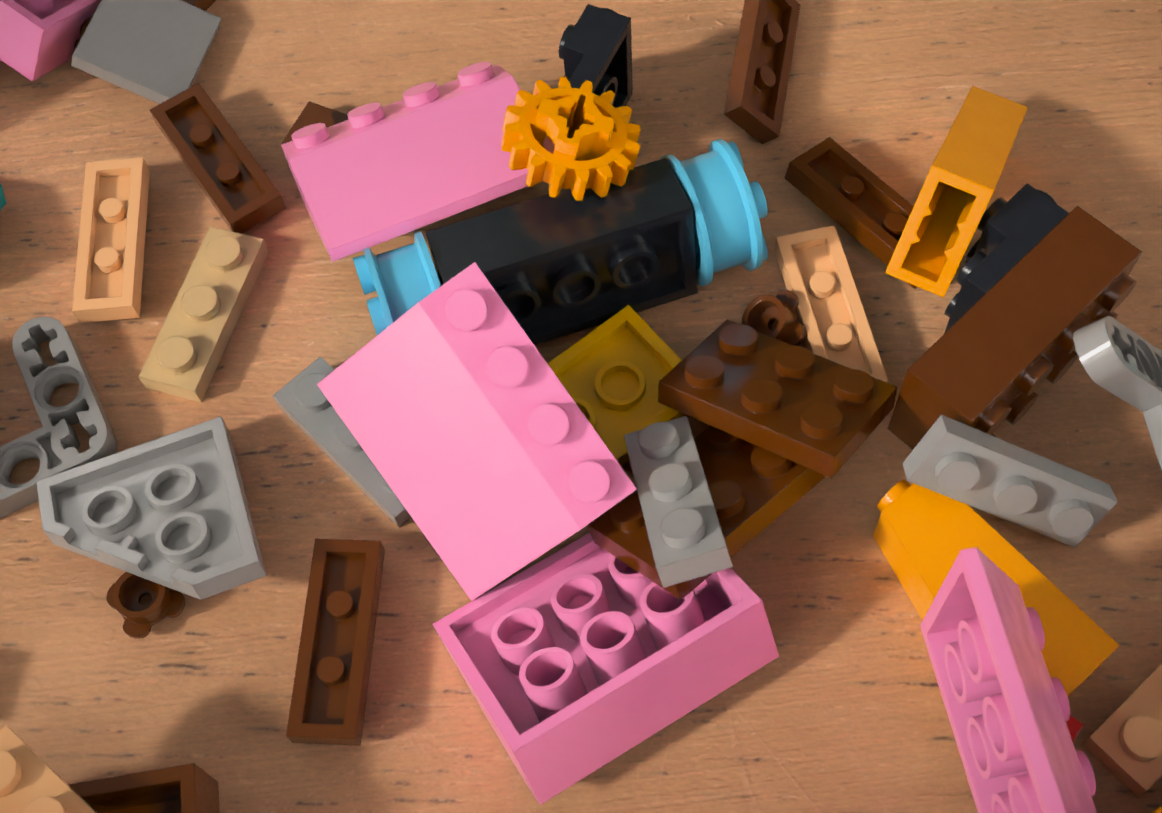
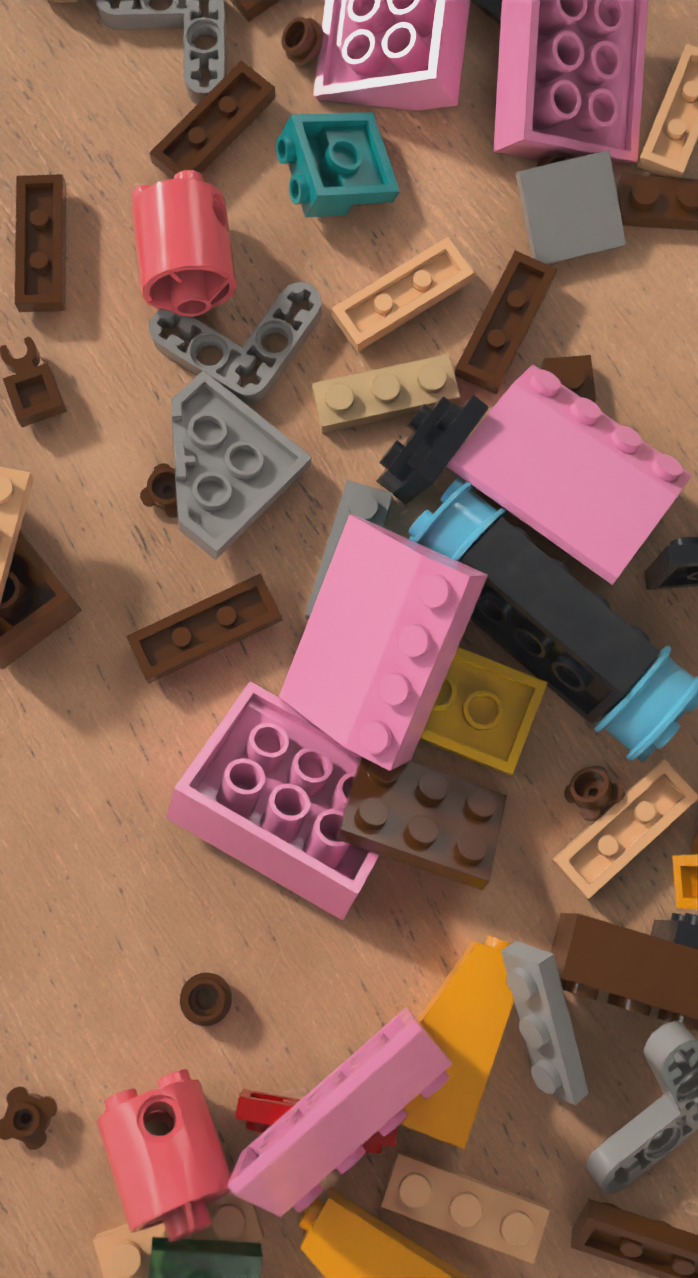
camera: 55 degrees right, 15 degrees up
(298, 282) = (430, 447): none -> black plate
(570, 138) = (624, 552): light orange gear -> none
(676, 502) = (400, 799): light grey plate -> none
(778, 396) = (524, 828): reddish brown plate -> none

